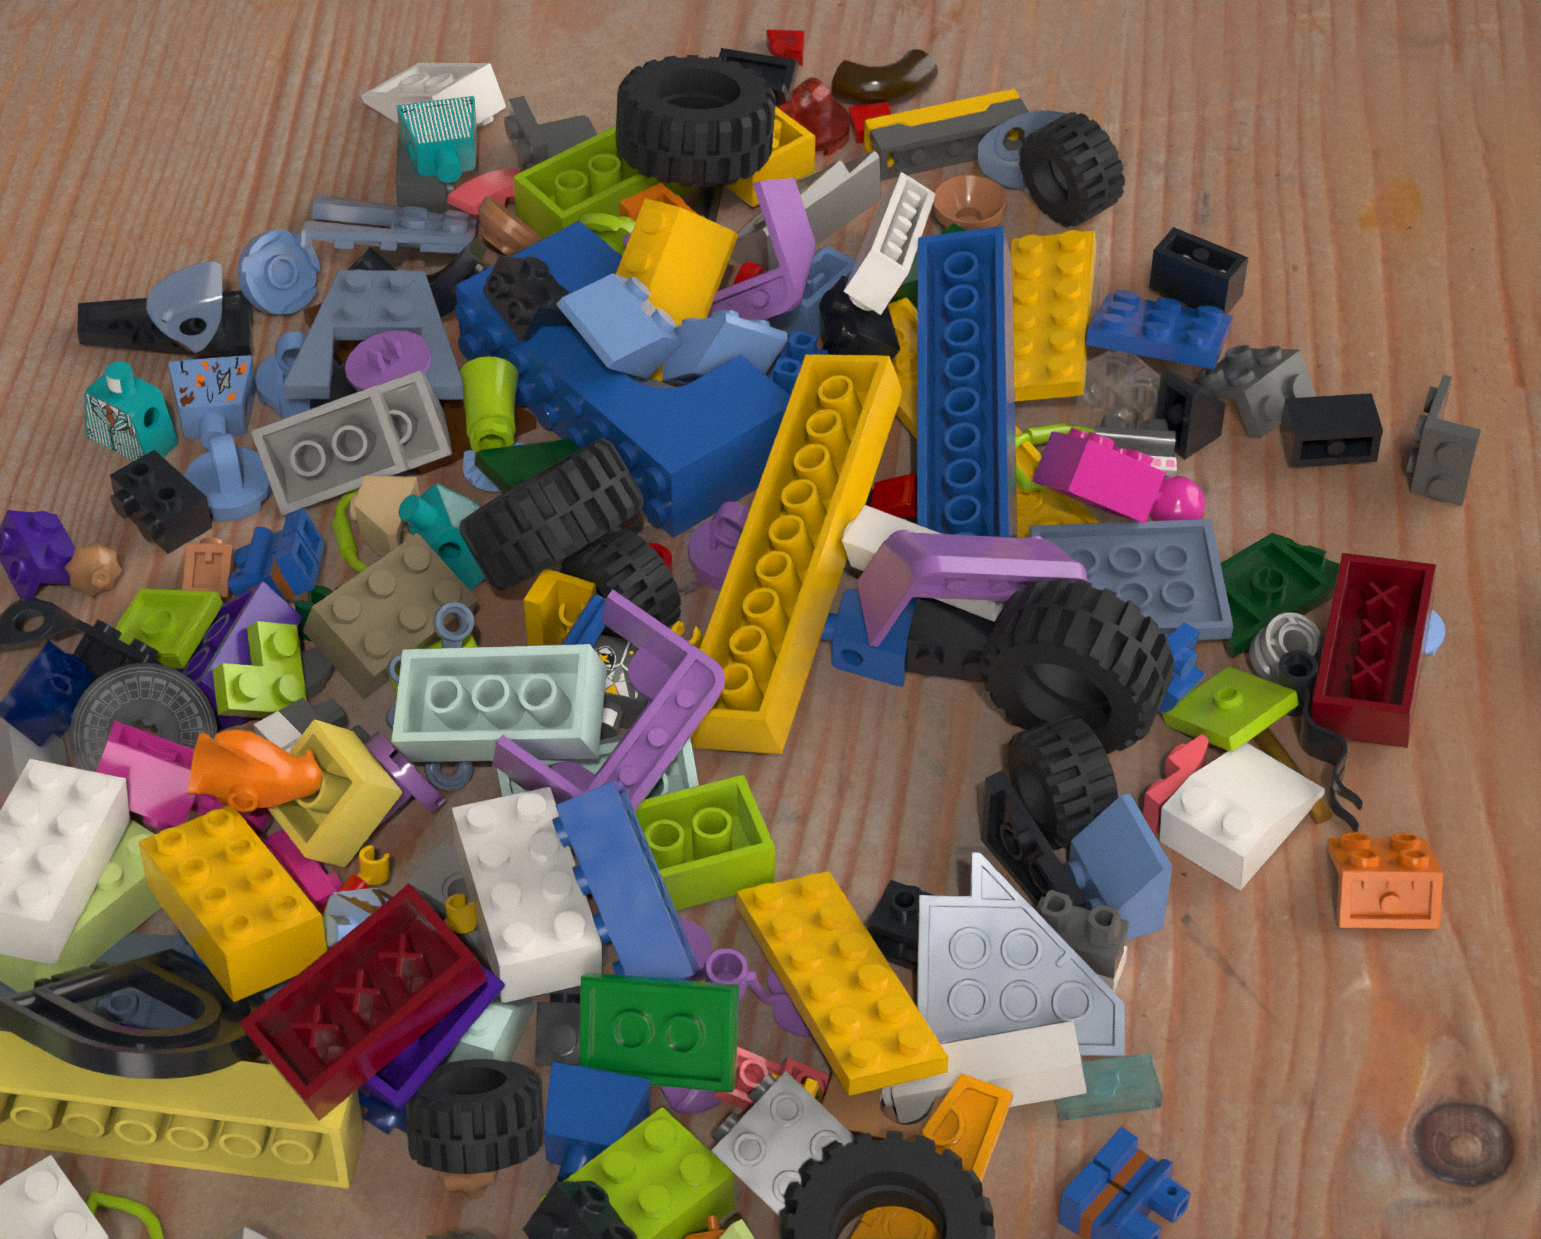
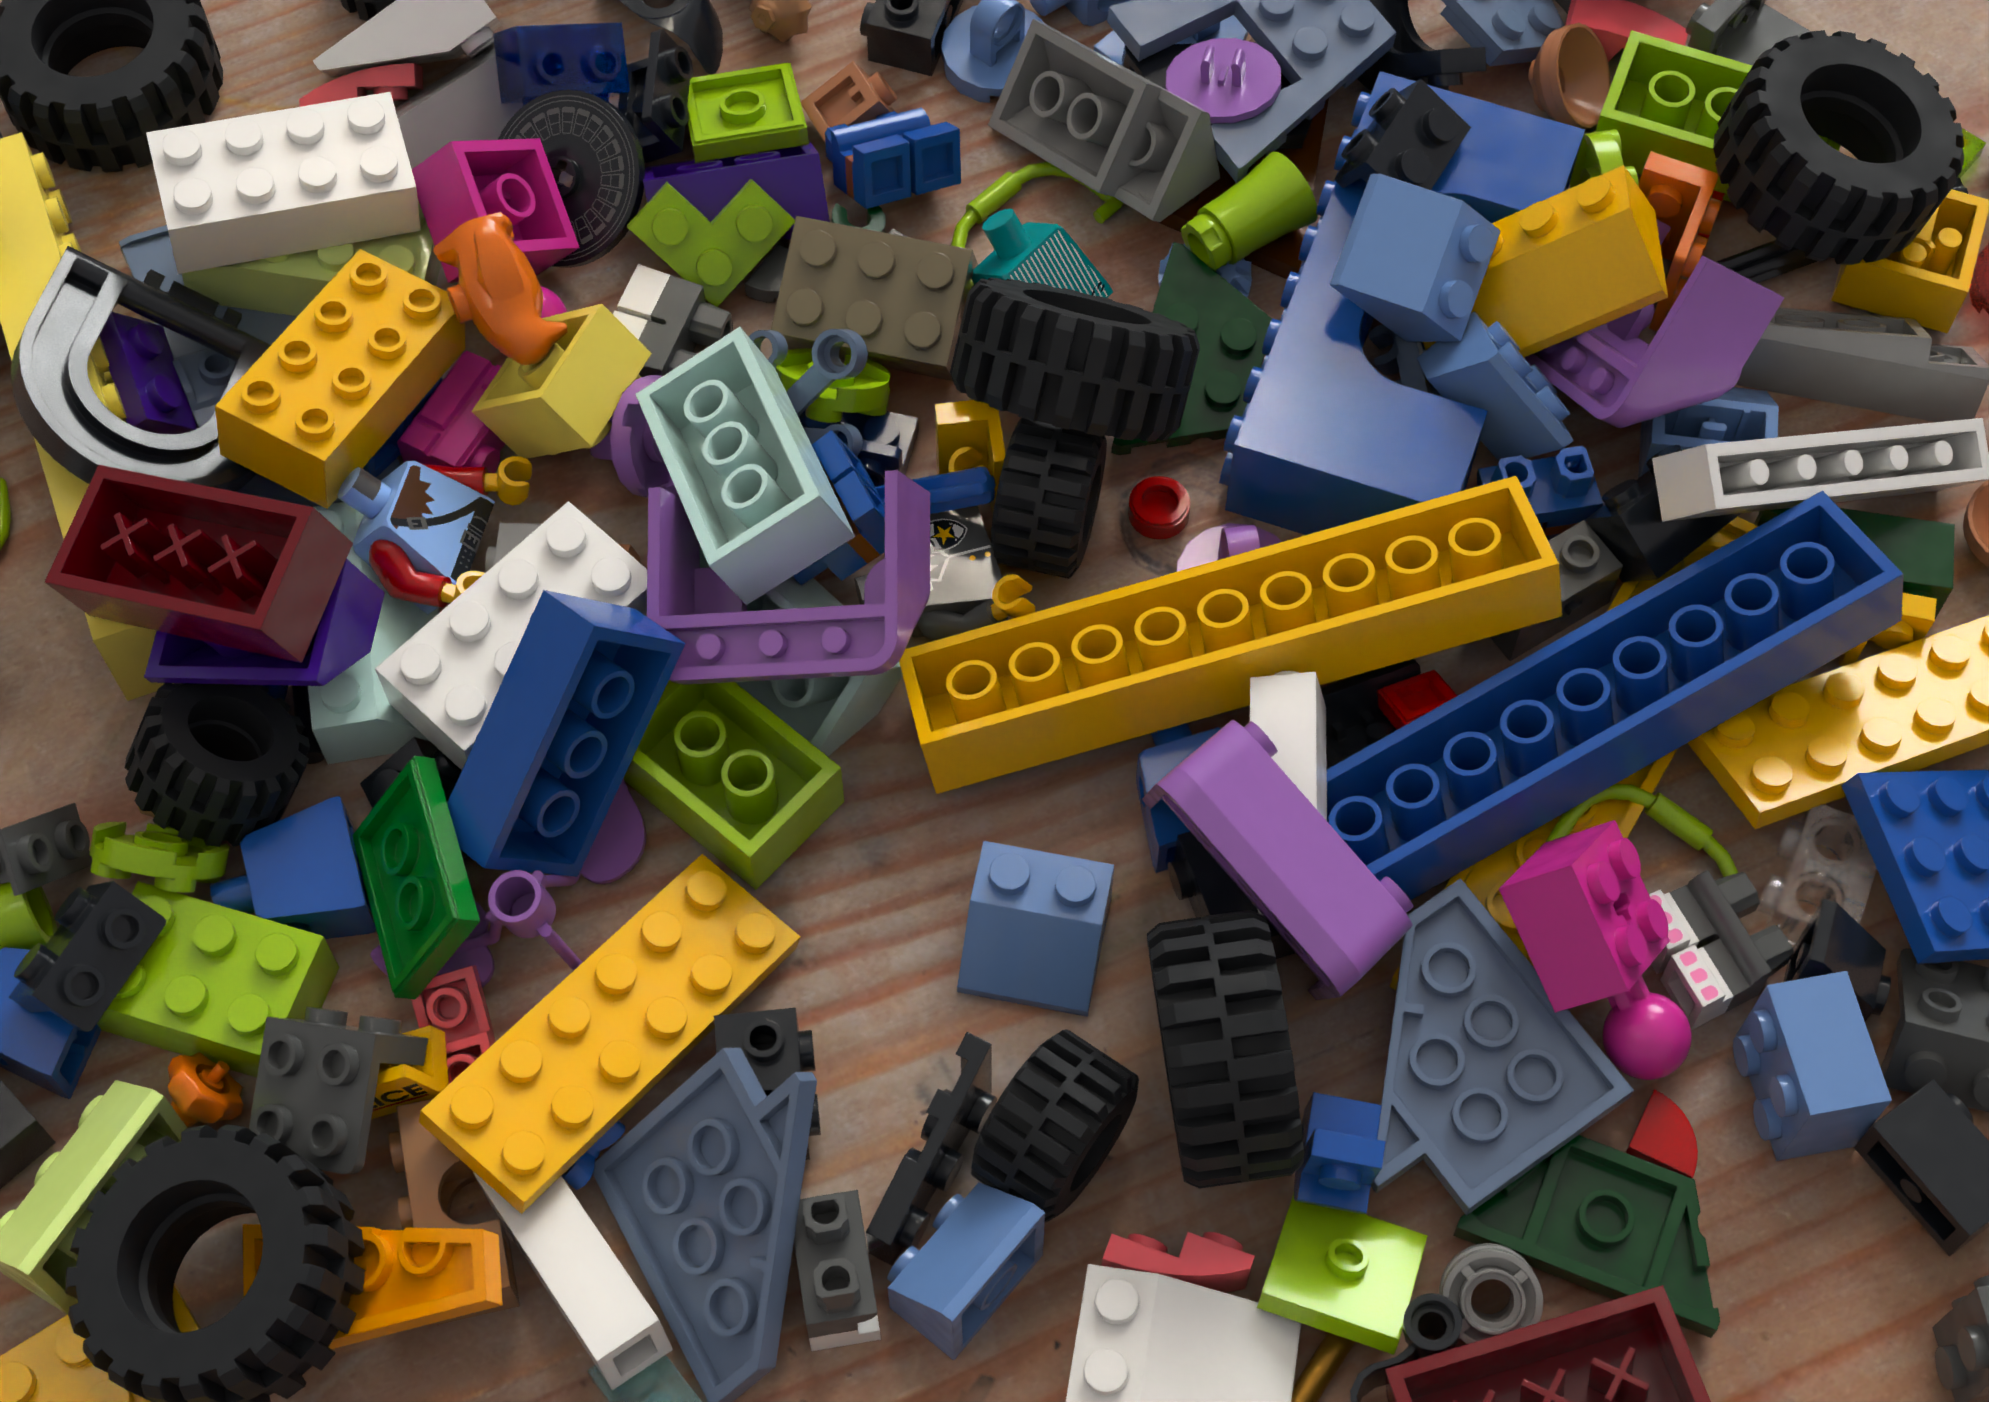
camera: 60 degrees right, 15 degrees up
(377, 511) = (1040, 196): tan slope -> none
(510, 1195) = (156, 853): none -> lime plate
(908, 748) = (1035, 928): none -> medium blue slope
(1234, 537) = (1665, 1137): none -> red tile
(1242, 444) = (1810, 1066): none -> medium blue brick

